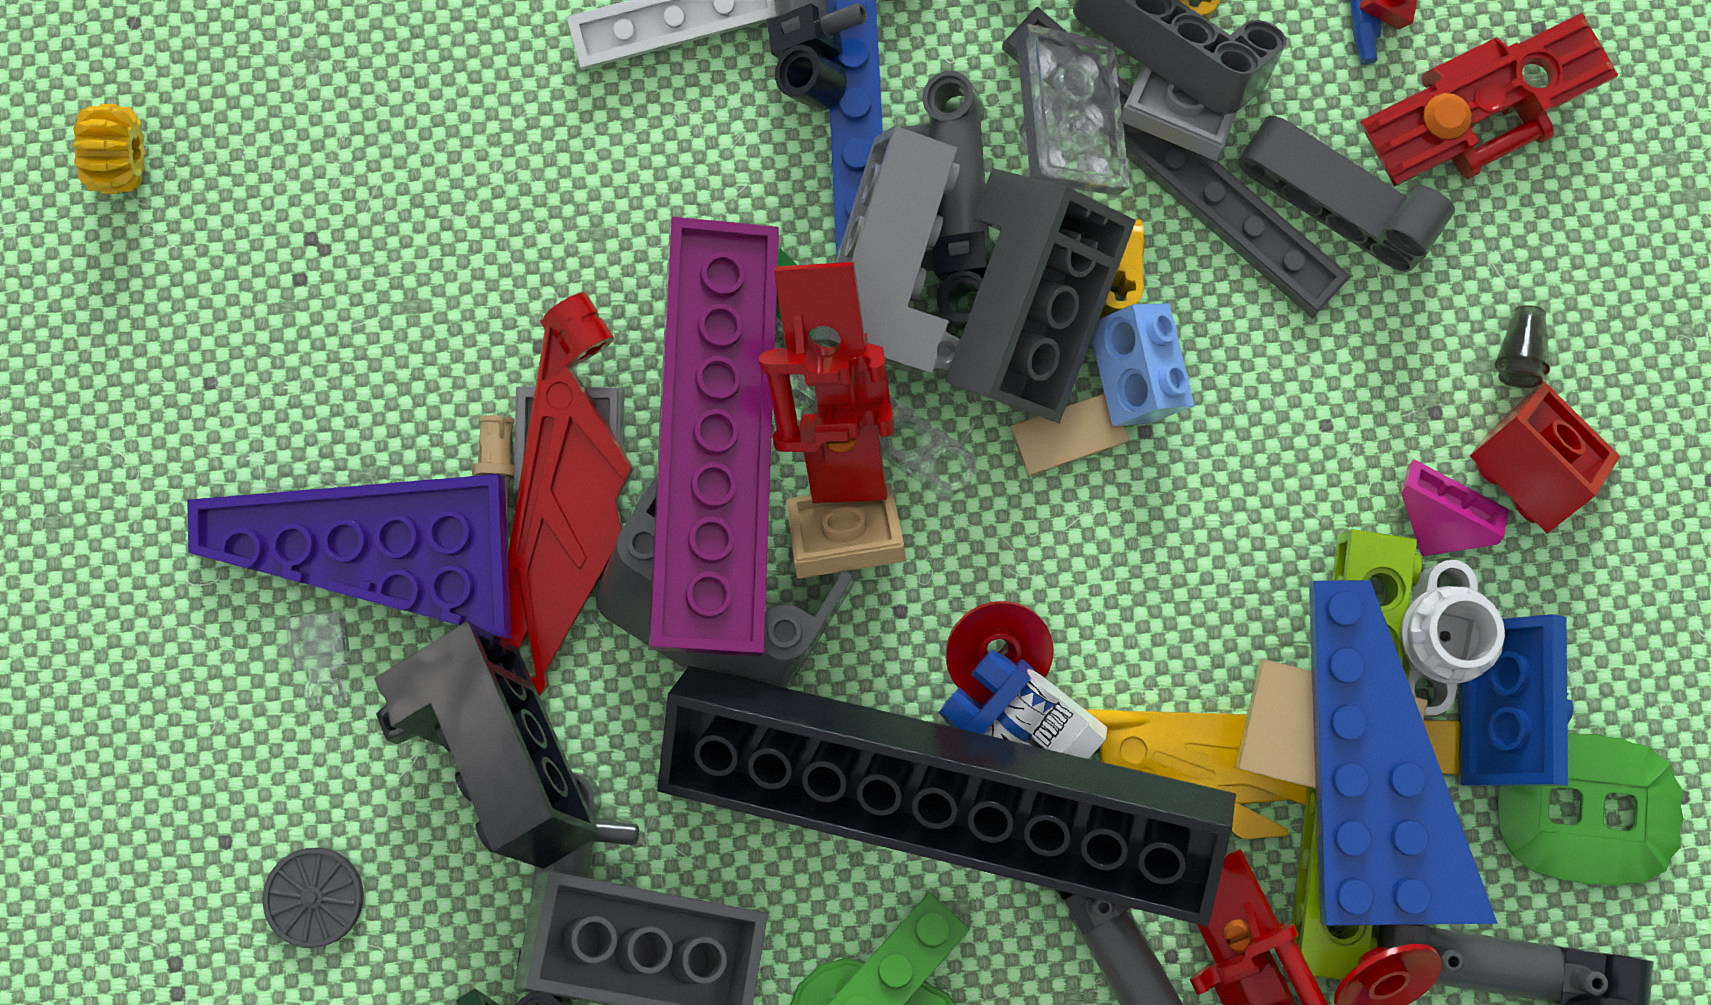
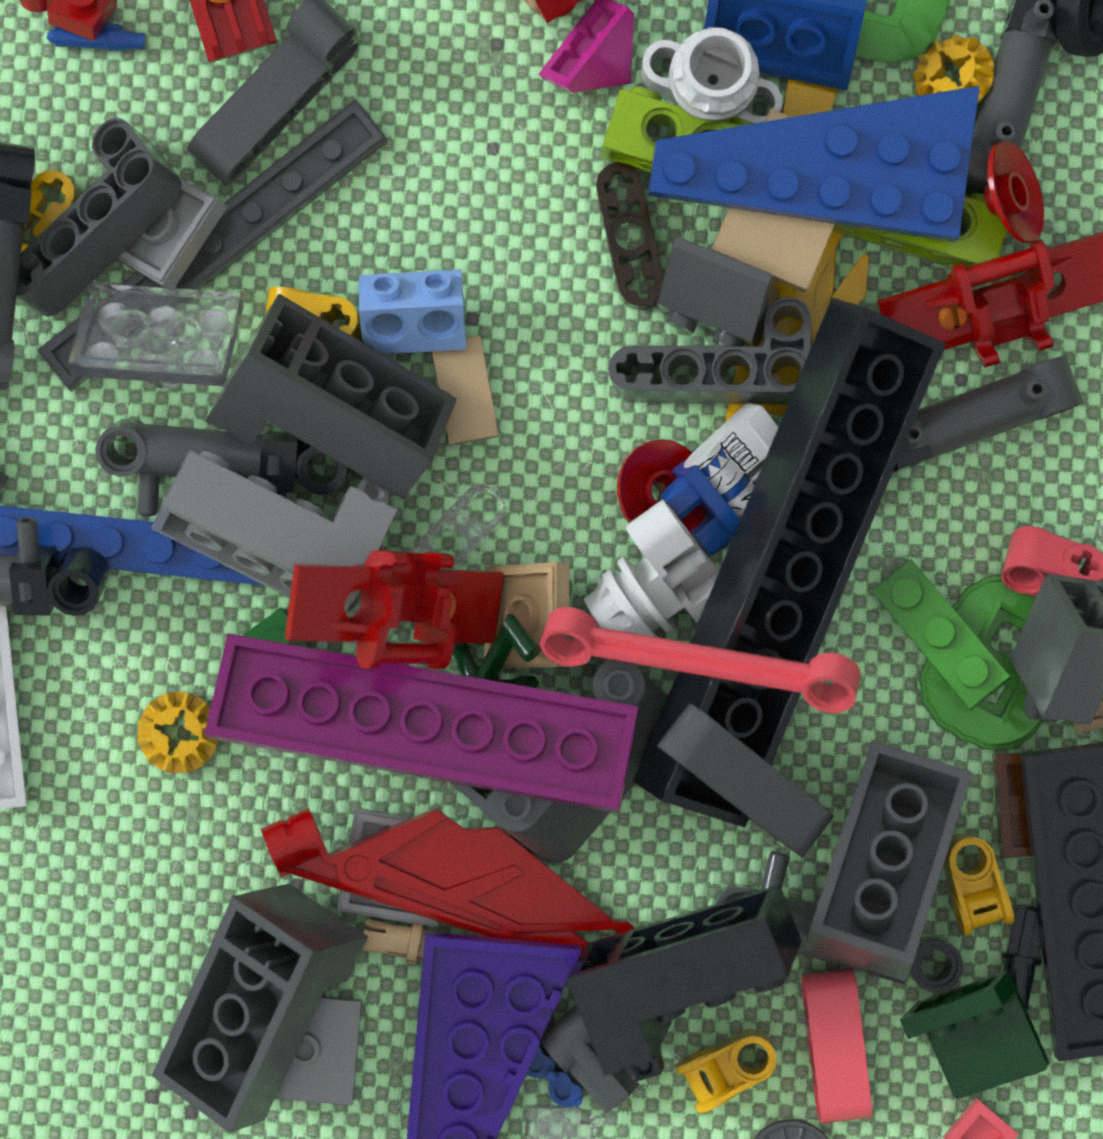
camera: 85 degrees left, 5 degrees up
(368, 644) = (561, 1085): none -> blue piece
(375, 379) = (326, 1056): none -> light grey plate
(398, 805) = (724, 1070): none -> yellow piece
(401, 641) = (573, 1051): none -> dark grey piece
(411, 315) = (255, 1002): none -> dark grey hinge
(443, 925) = (836, 1045): none -> coral beam
(659, 185) = (156, 745): none -> yellow gear
(702, 780) = (745, 780): none -> dark grey beam
(818, 511) = (510, 635): none -> dark green piece
(827, 574) = (701, 660): none -> coral piece
(884, 648) = (668, 579): none -> white beam
(1142, 684) = (712, 363): none -> dark grey beam
(1215, 676) = (715, 295): none -> dark grey slope
(1291, 551) = (608, 202): none -> dark brown beam
(1524, 912) = (977, 70): none -> yellow gear

